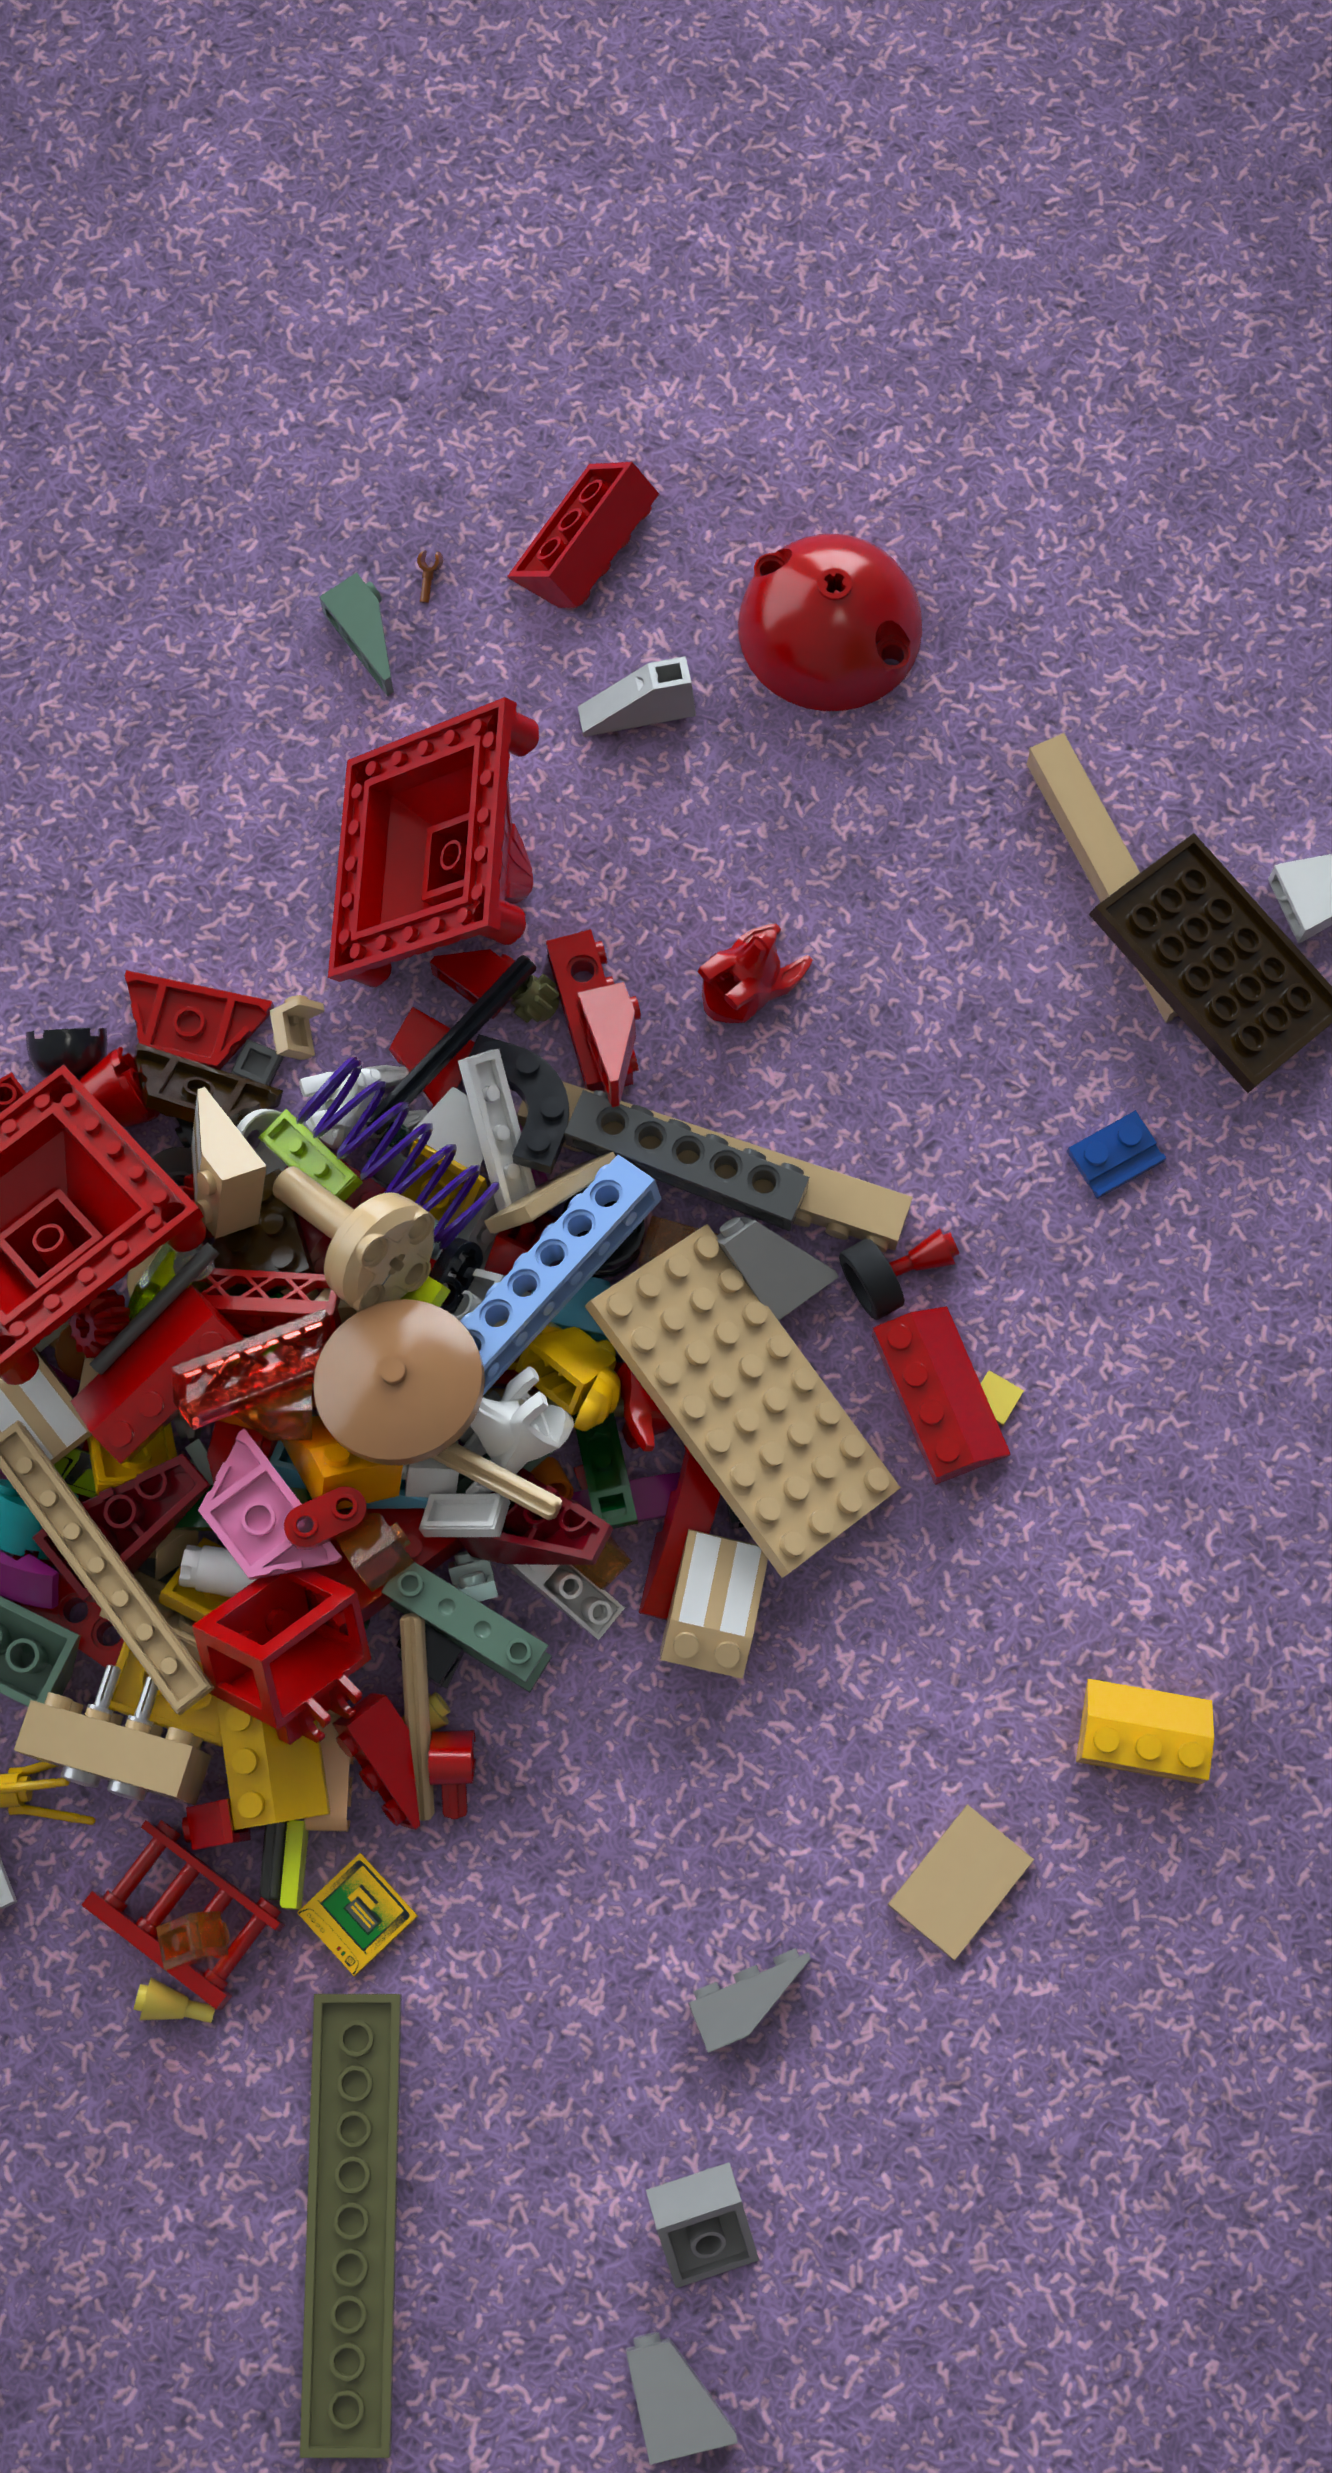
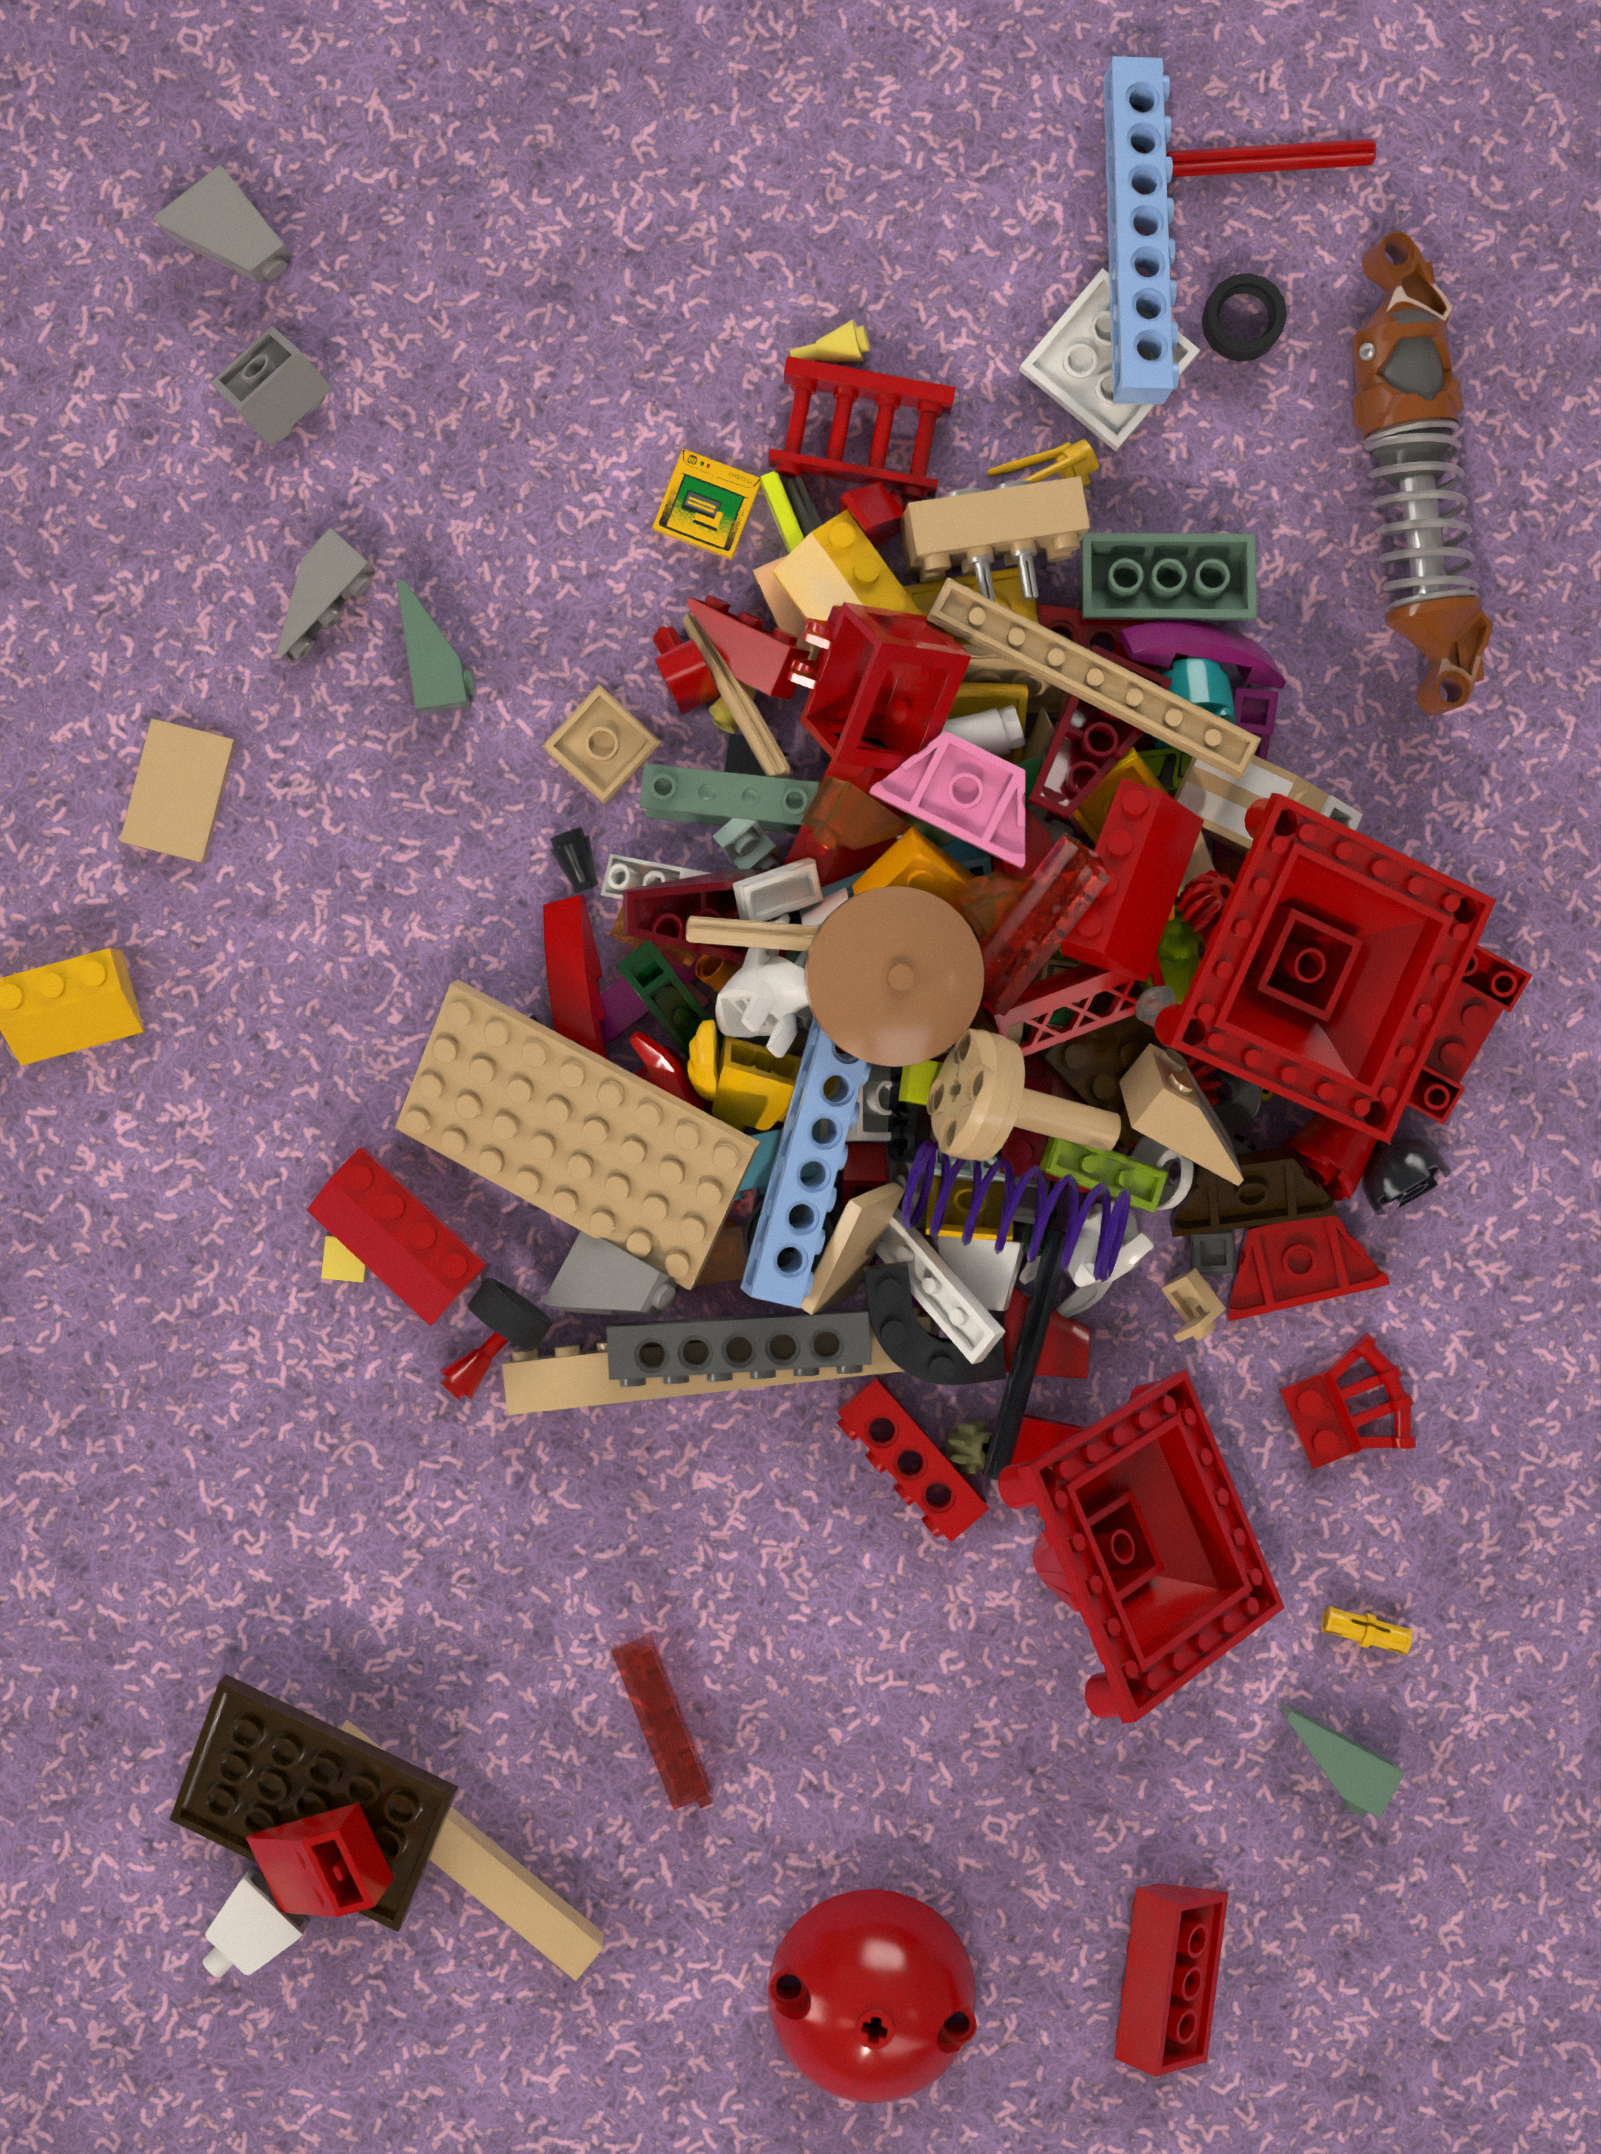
camera: 150 degrees right, 15 degrees up
(154, 1308) = (1167, 940): dark grey bar -> none
(193, 1939) = (833, 398): clear orange slope -> none
(237, 893) = (1323, 1418): none -> red plate
(291, 717) = (1366, 1630): none -> yellow pin
(327, 1520) = (901, 818): red plate -> none
(351, 2227) = (579, 243): olive plate -> none
(428, 573) = (1309, 1855): dark orange hand -> none
(558, 1740) = (601, 744): none -> tan tile
(610, 1030) = (878, 1443): slope -> none
(630, 1650) = (575, 858): none -> black cone
(646, 697) = (1021, 1818): light grey slope -> none
(672, 1879) = (435, 668): none -> sand green slope
(714, 1604) = (512, 928): tan slope -> none
(748, 976) = (773, 1570): red piece -> none
(899, 901) = (663, 1722): none -> clear red fence
(1116, 1154) = (335, 1557): blue plate -> none
(1230, 905) = (323, 1863): none -> red slope

